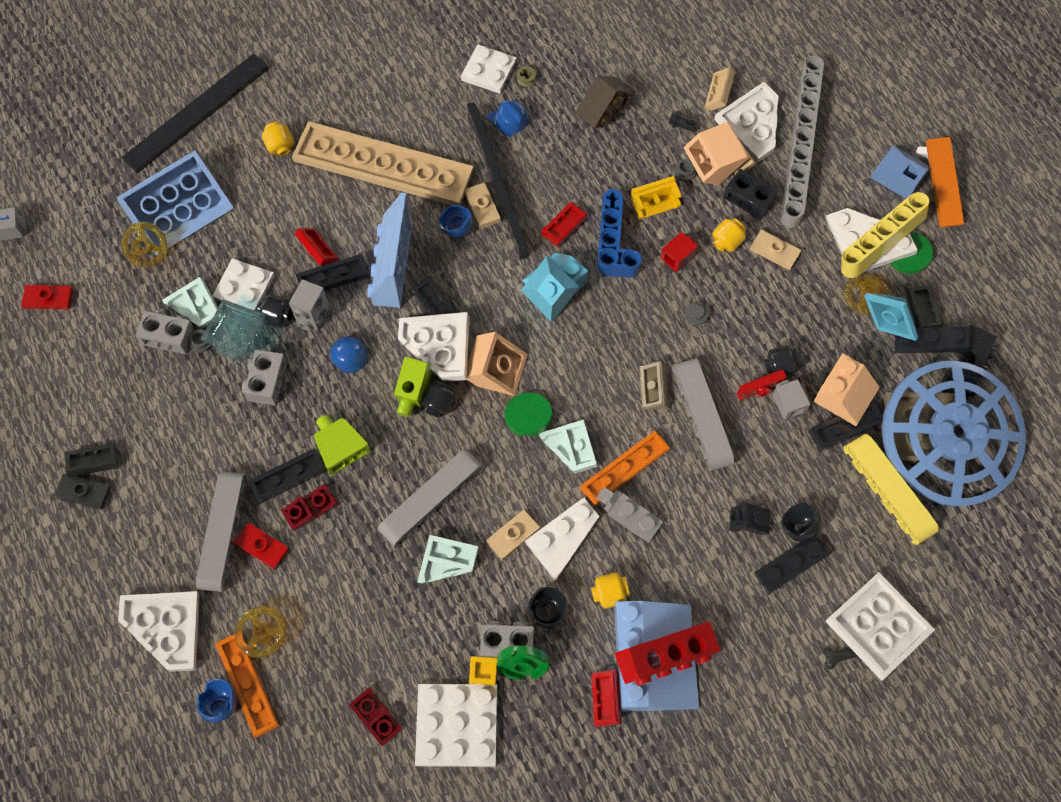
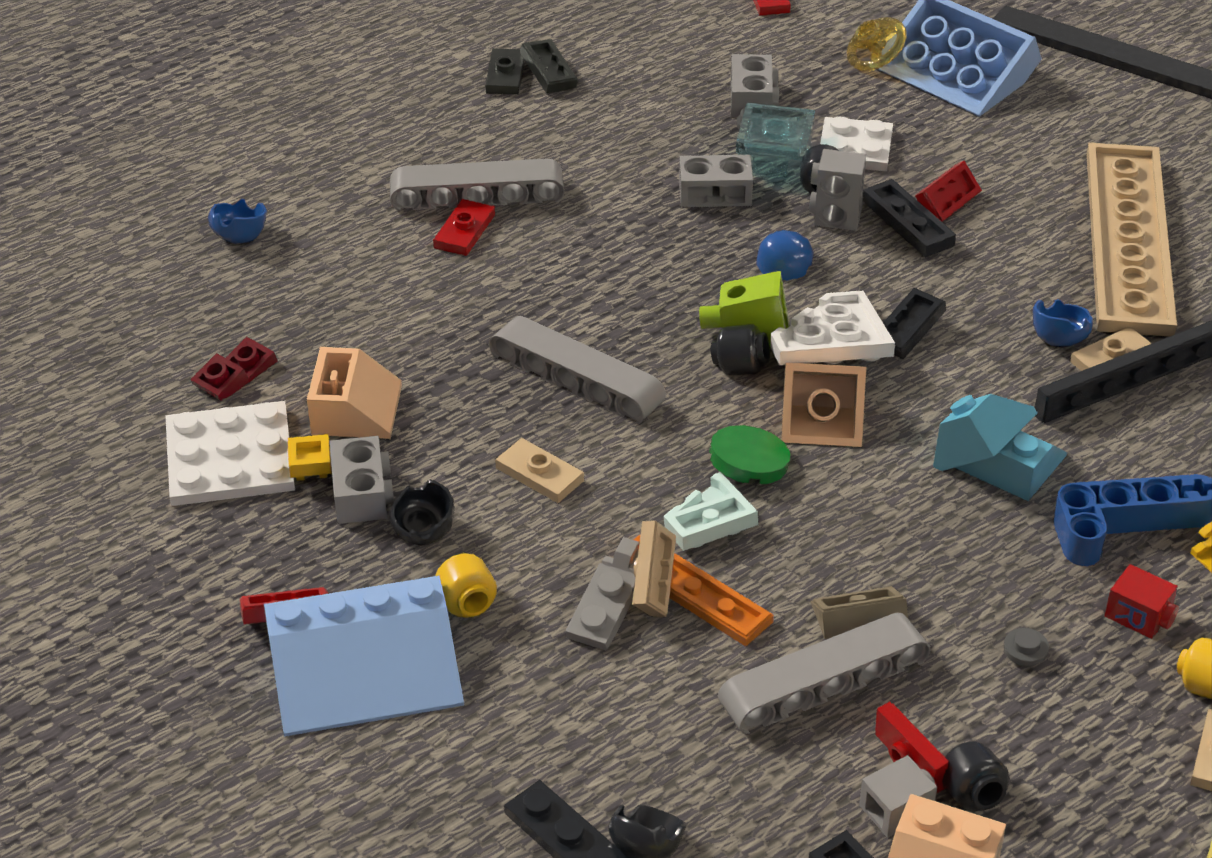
camera: 80 degrees right, 25 degrees down
(164, 626) = (335, 166): white plate -> none
(194, 302) = (815, 97): light aqua wing -> none
(247, 687) = (266, 249): orange tile -> none
(277, 138) = (1112, 124): yellow head -> none
(280, 631) = (338, 242): clear yellow piece -> none
(287, 476) = (573, 229): black plate -> none
(308, 508) = (529, 258): dark red slope -> none
(339, 443) = (632, 264): lime torso -> none
(391, 255) = (963, 247): light blue slope -> none
(431, 638) = (352, 395): none -> light nougat slope
(446, 559) = (482, 400): light aqua wing -> none
(522, 661) = (324, 488): green tile -> none
(561, 537) = (549, 525): white wing -> none
(564, 224) = (1124, 451): red plate -> none
(623, 484) = (654, 569): none -> tan plate
(666, 653) = (336, 578): red brick -> none
(749, 518) = (639, 763): black bracket -> none

